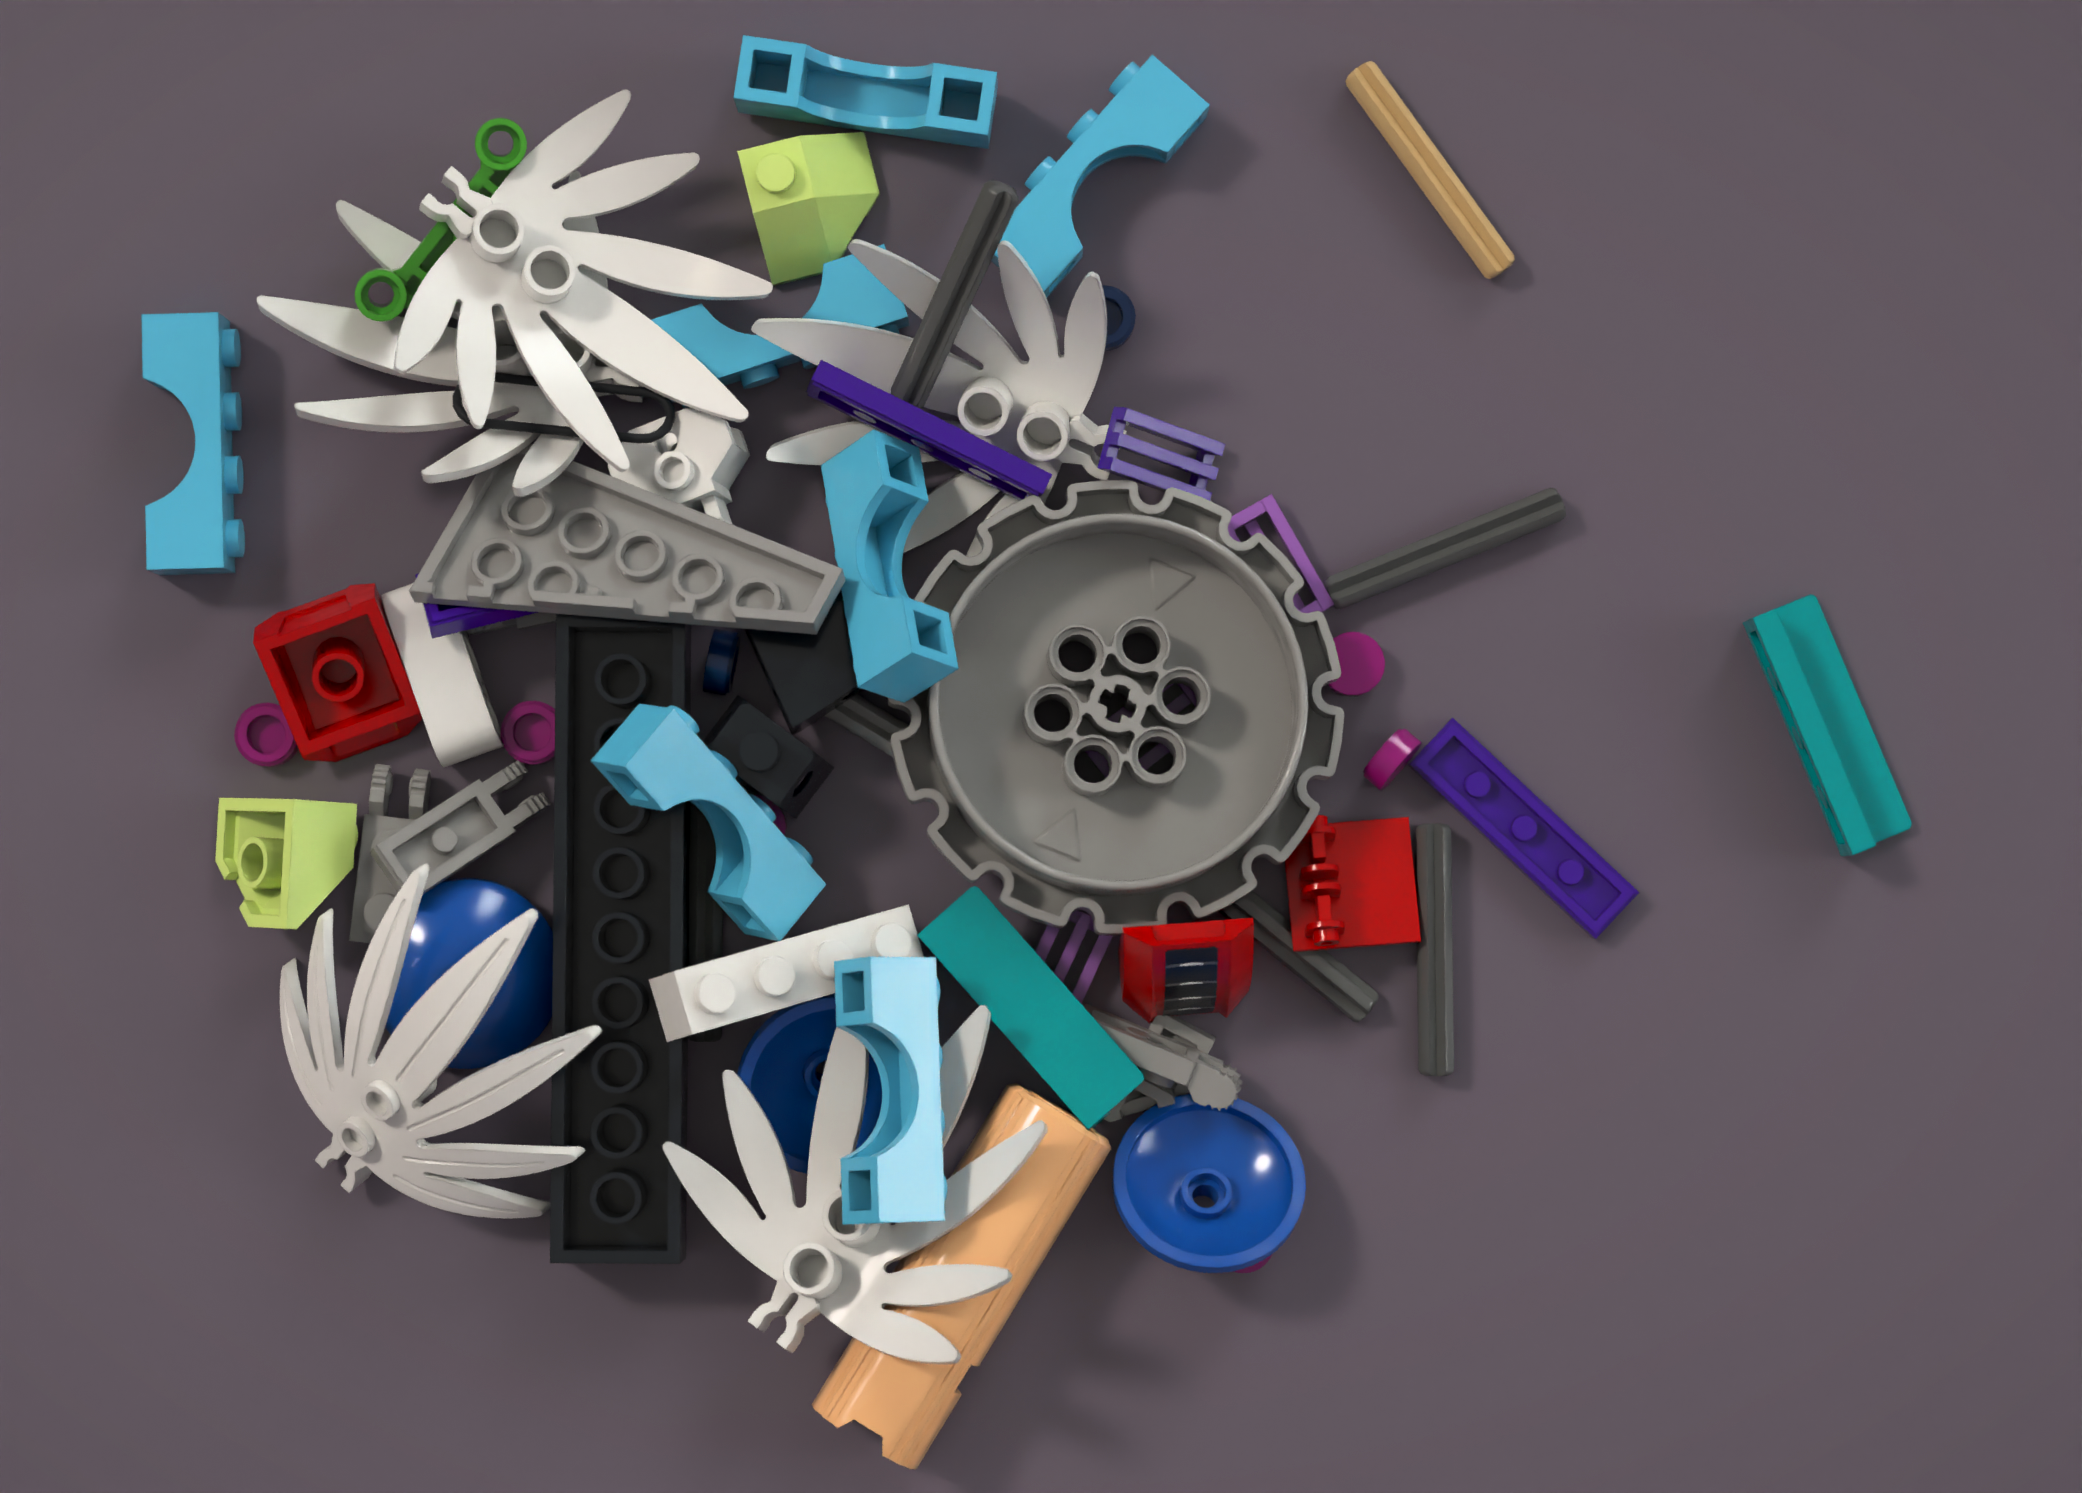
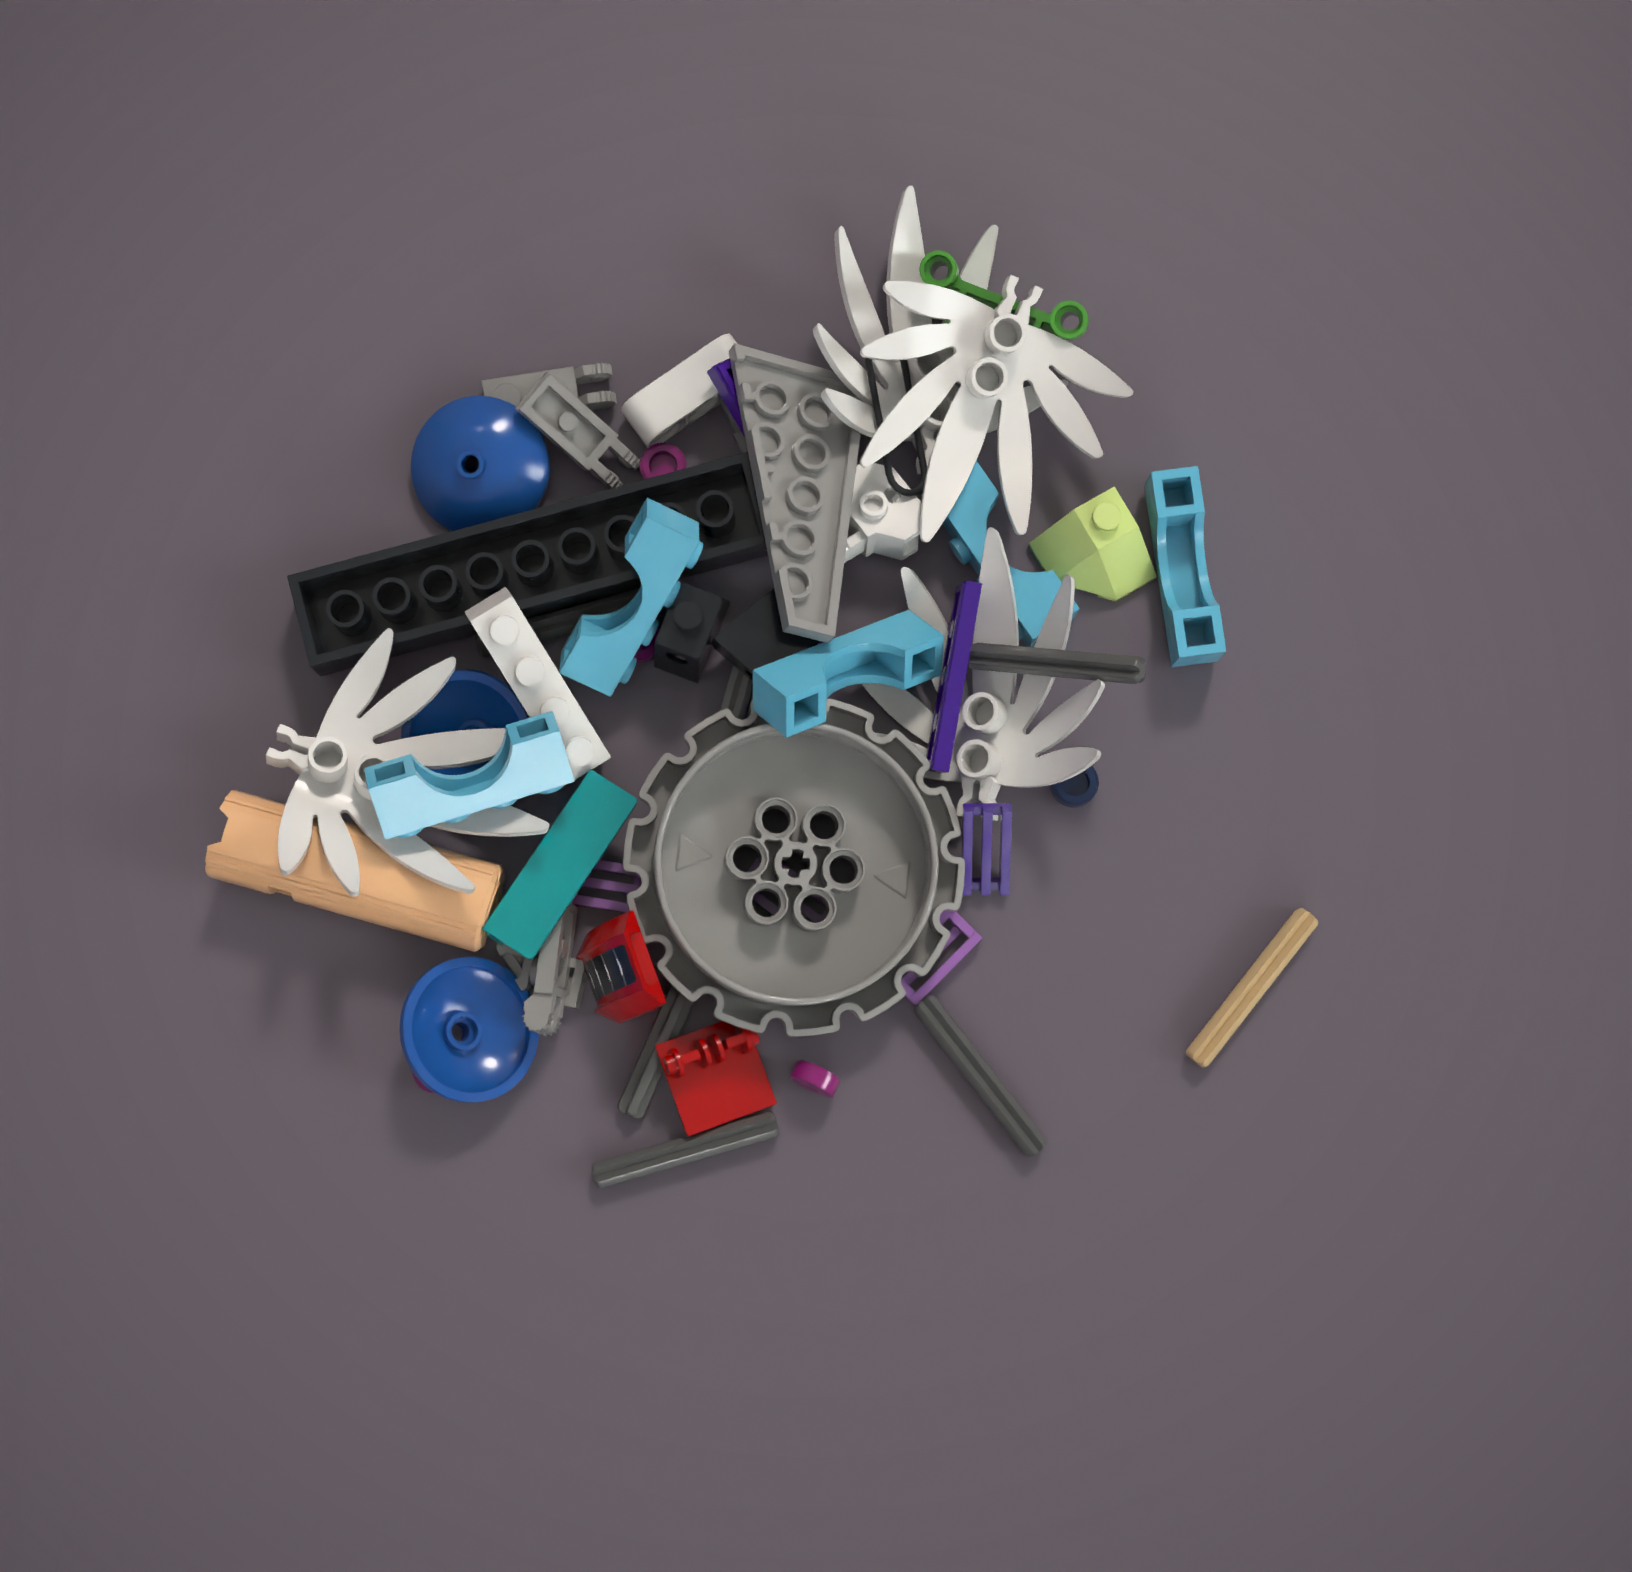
camera: 75 degrees right, 5 degrees down
(195, 523) = (746, 195): medium azure arch -> none
(264, 735) = (611, 286): magenta tile -> none
(284, 855) = (528, 319): yellowish green slope -> none
(338, 674) = (664, 318): red slope -> none
(377, 1103) = (372, 423): white plant -> none
(721, 662) = (749, 581): dark blue tile -> none
(1145, 119) = (1226, 770): medium azure arch -> none
(1360, 664) = (877, 1034): magenta tile -> none
(1523, 828) = (791, 1191): dark purple tile -> none
(1828, 725) = (931, 1397): teal panel -> none

